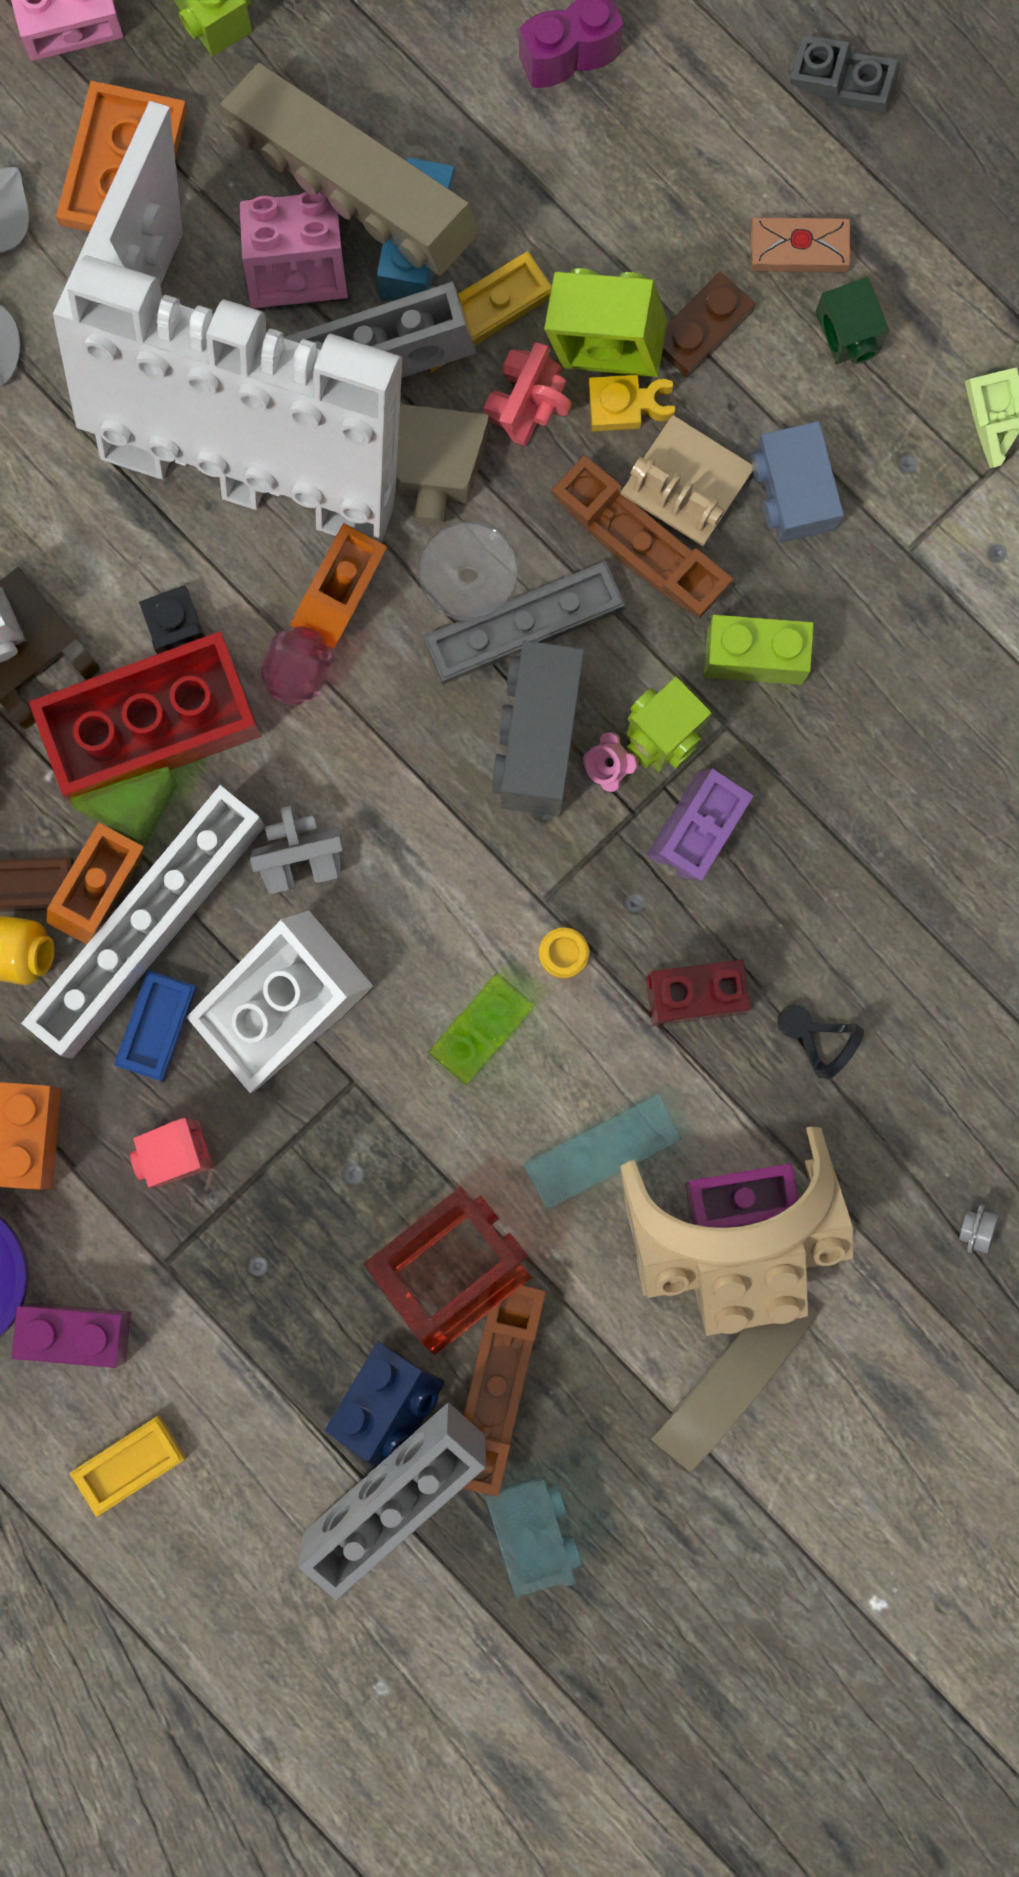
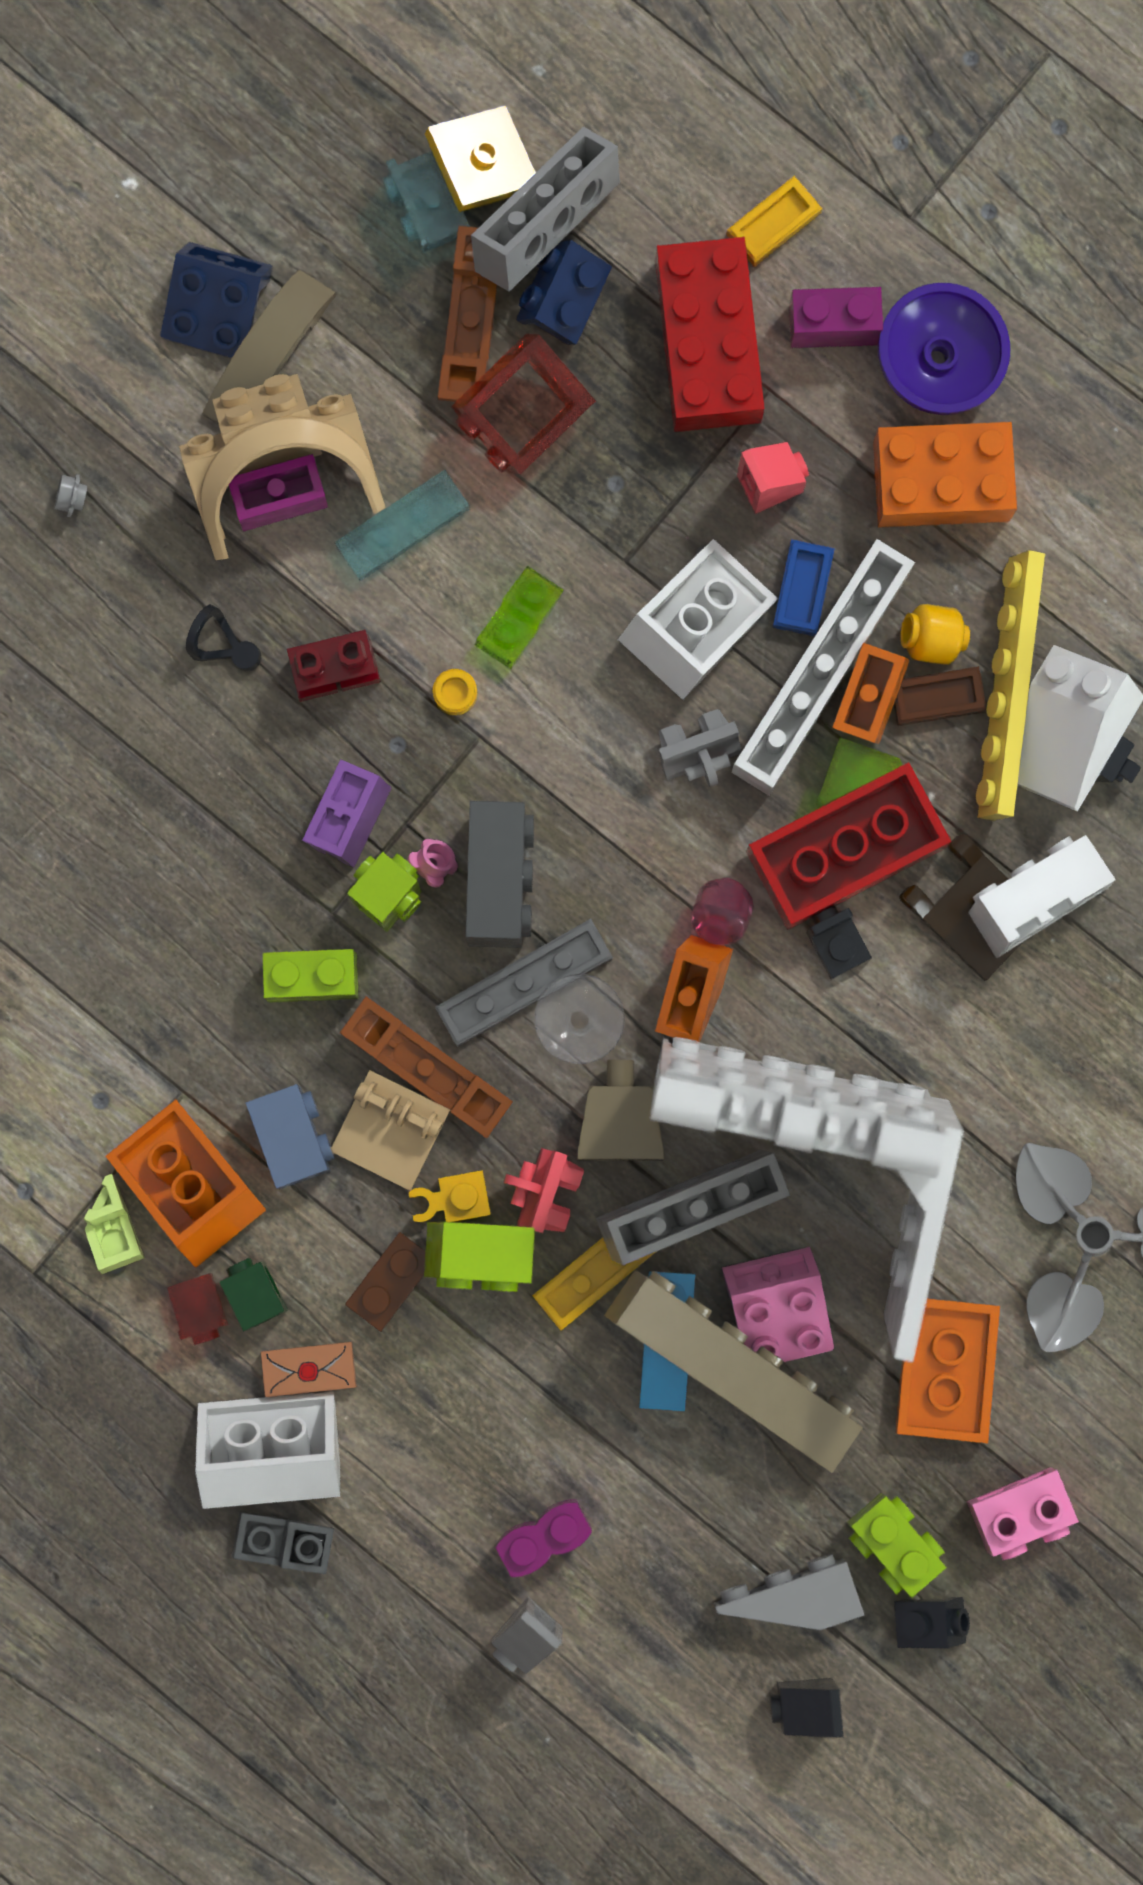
camera: 175 degrees right, 0 degrees up
(220, 1333) = (709, 334): none -> red brick
(461, 1580) = (480, 157): none -> plate
(793, 1447) = (212, 298): none -> dark blue bracket
(853, 163) = (267, 1450): none -> white slope
(912, 316) = (198, 1309): none -> clear red bracket
(915, 446) = (185, 1183): none -> orange slope

